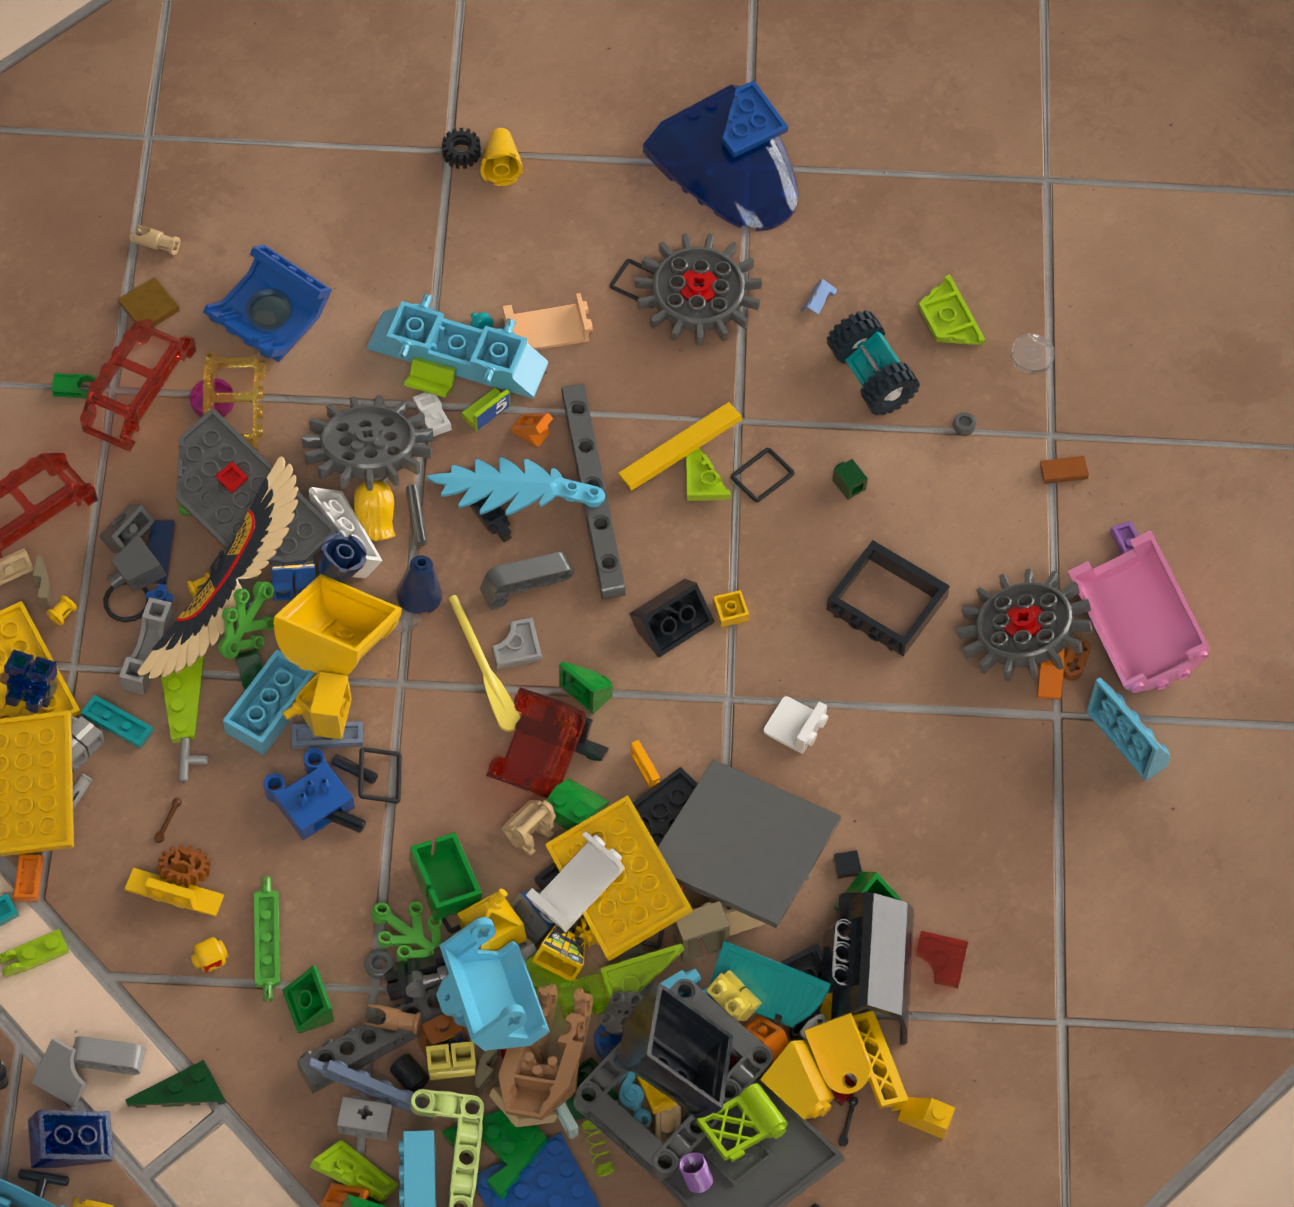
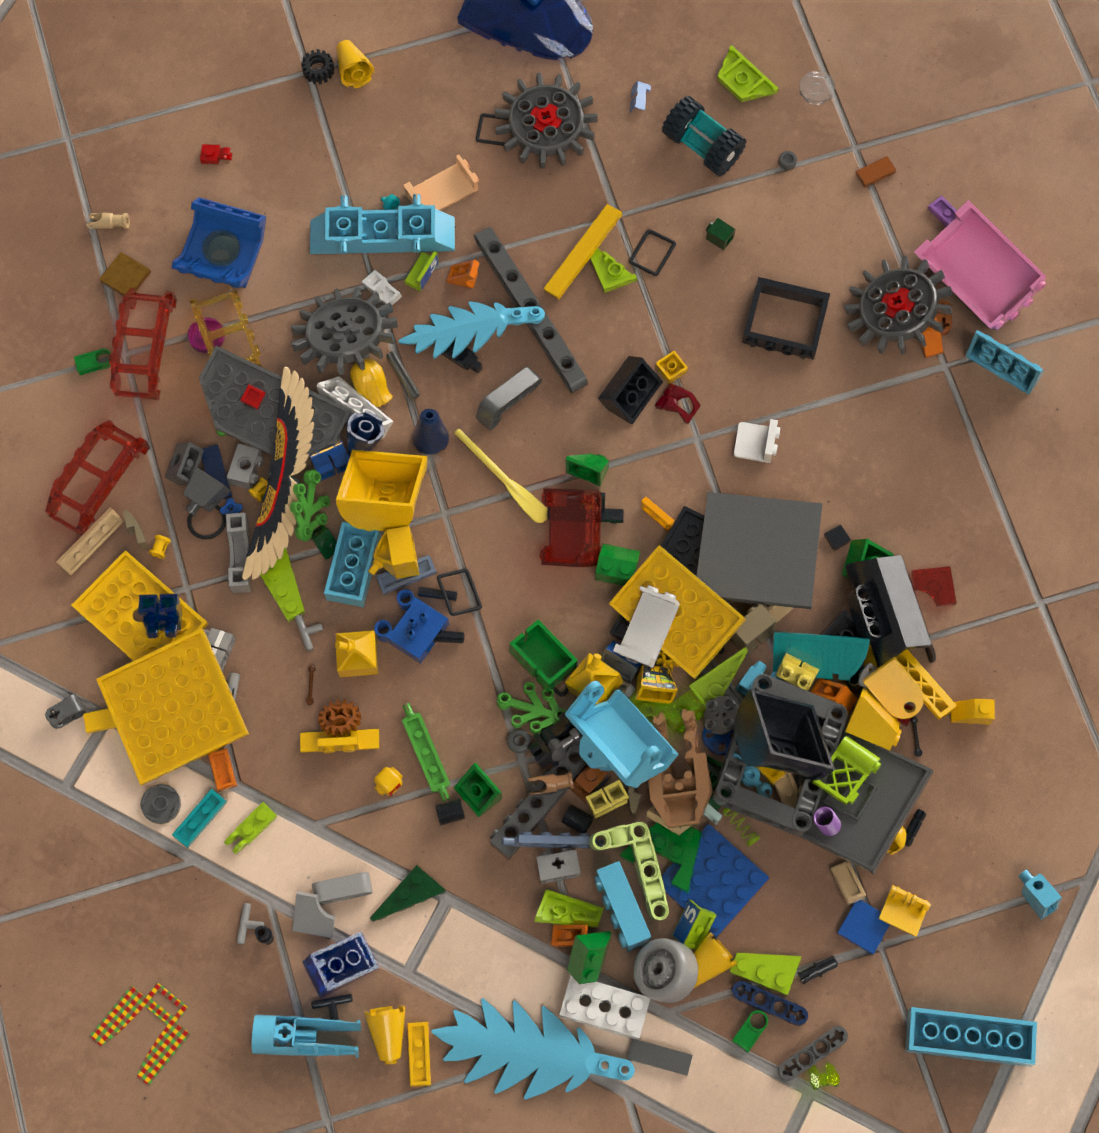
camera: 15 degrees left, 10 degrees up
(117, 721) = (239, 621): teal plate -> none
(195, 543) = (244, 456): none -> light grey brick
(233, 802) = (356, 653): none -> yellow piece
(266, 1014) = (450, 812): none -> black piece
(303, 204) = (212, 153): none -> red plate
(431, 377) = (370, 260): lime panel -> none
(519, 646) = (523, 452): light grey tile -> none
(532, 817) = (587, 589): tan piece -> none
(712, 645) = (670, 400): none -> dark red piece

